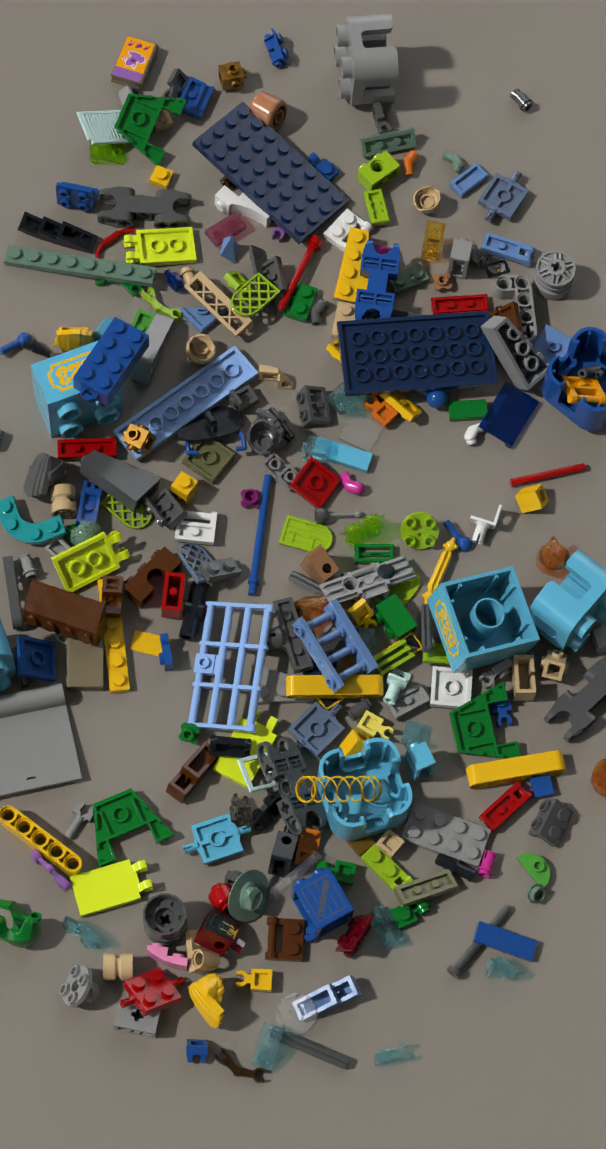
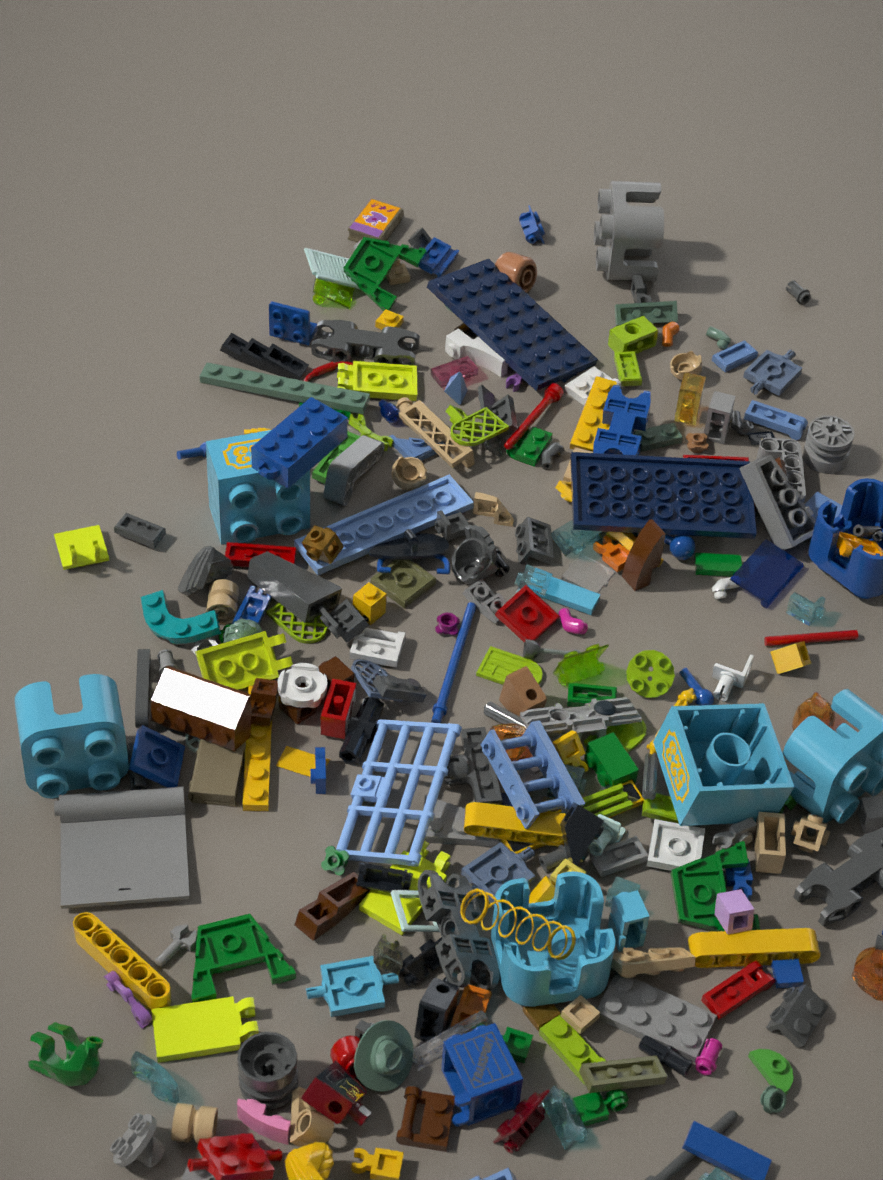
camera: 10 degrees right, 20 degrees down
(134, 574) = (302, 697): none -> white plate
(231, 75) = (479, 241): pearl gold brick -> none
(325, 168) = (573, 328): blue plate -> none
(376, 691) = (578, 831): none -> black slope
(406, 418) = (644, 556): none -> reddish brown slope
(437, 792) = (656, 960): none -> tan wing
(499, 745) = (734, 911): none -> lavender brick
(541, 449) = (804, 609): none -> clear light blue bracket

